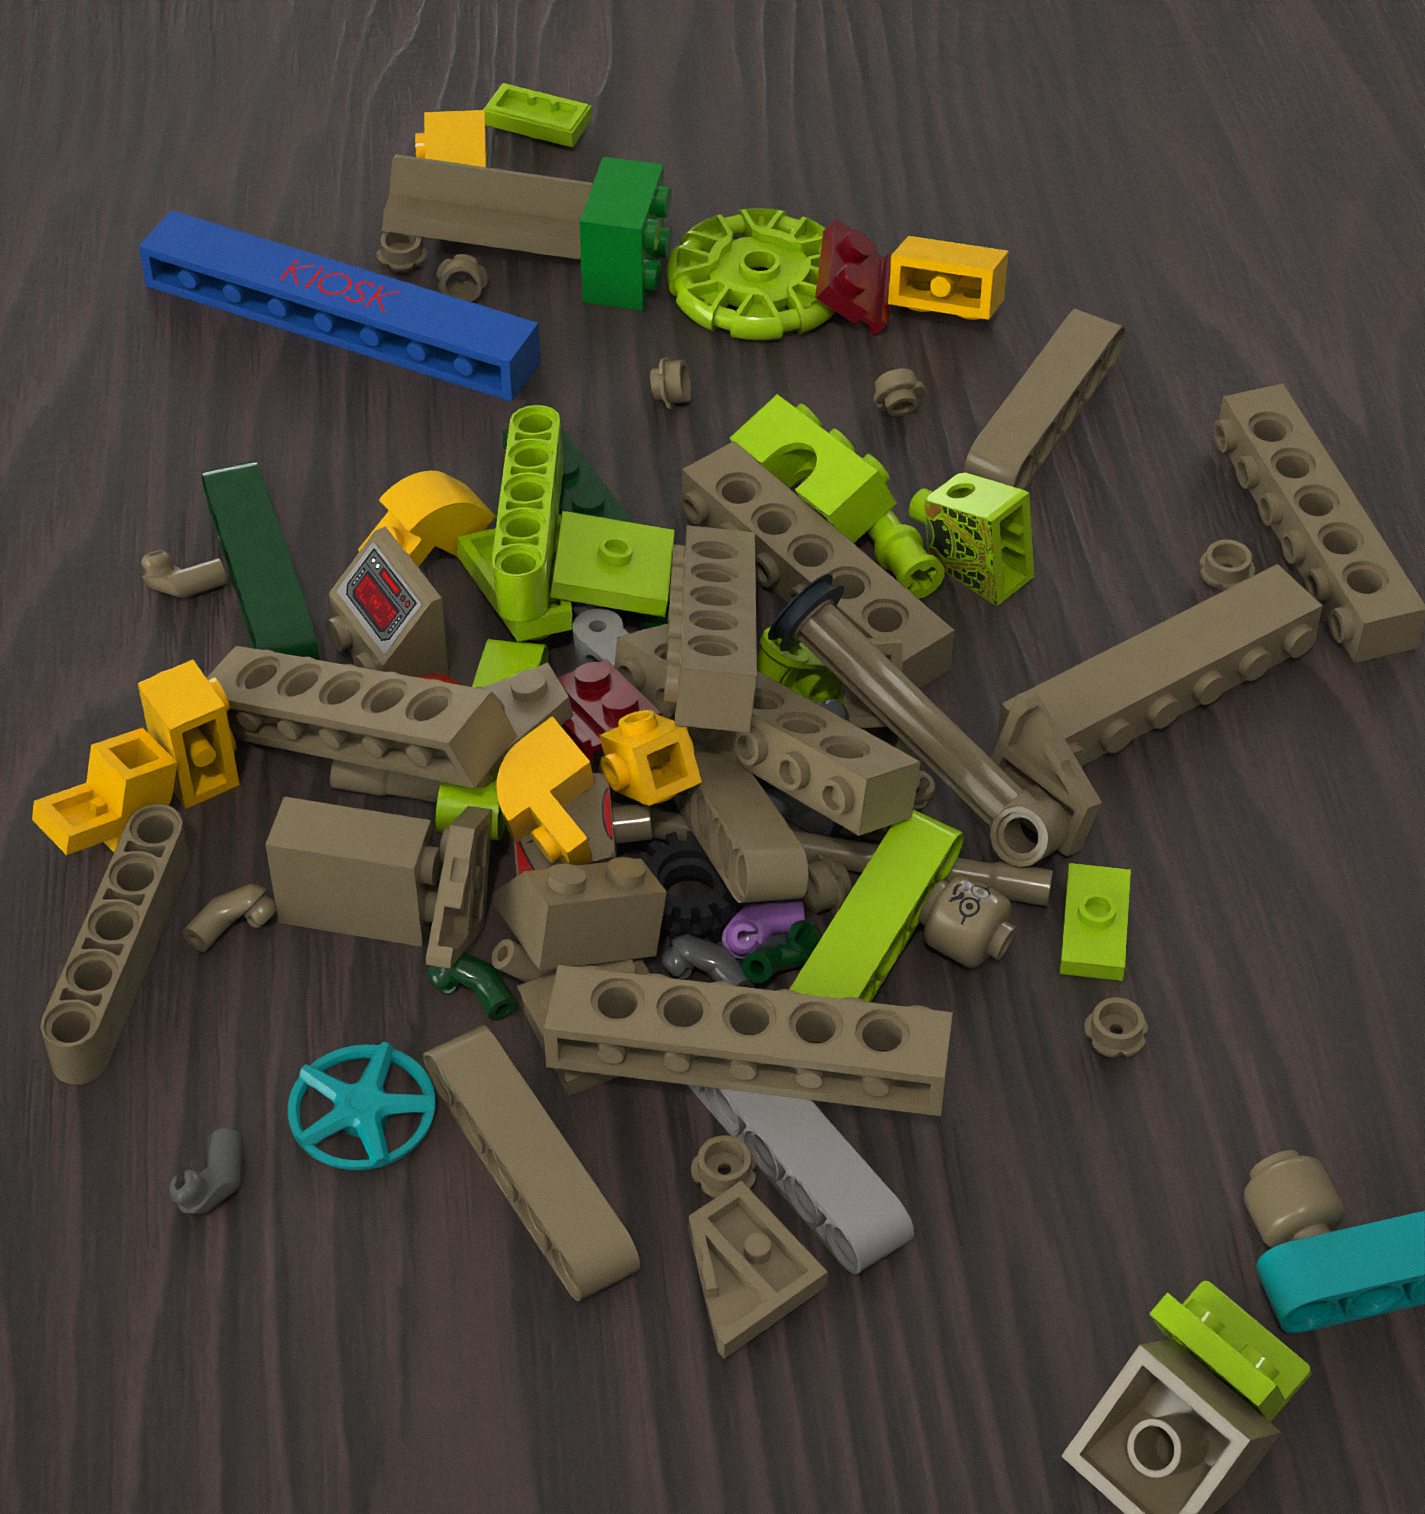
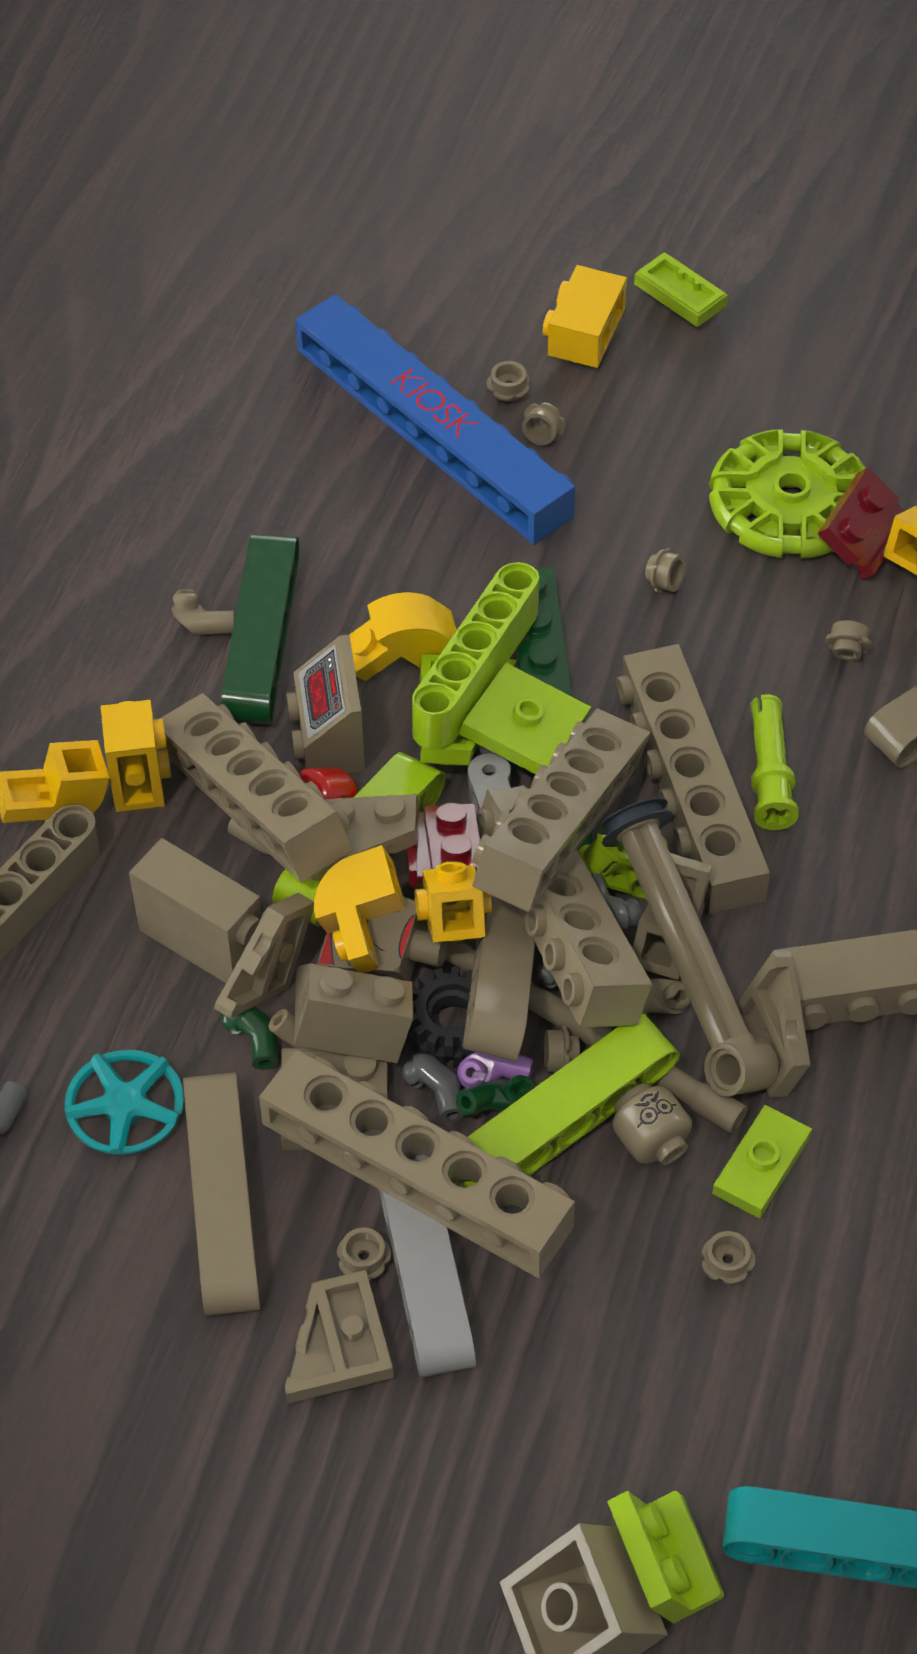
camera: 25 degrees right, 5 degrees up
(224, 910) = (97, 908): dark tan arm -> none
(485, 206) = (591, 368): dark tan panel -> none
(624, 233) = (686, 425): green brick -> none
(839, 482) = (744, 716): lime arch -> none
(979, 533) = (840, 793): lime torso -> none
(1292, 1198) = (784, 1453): dark tan head -> none

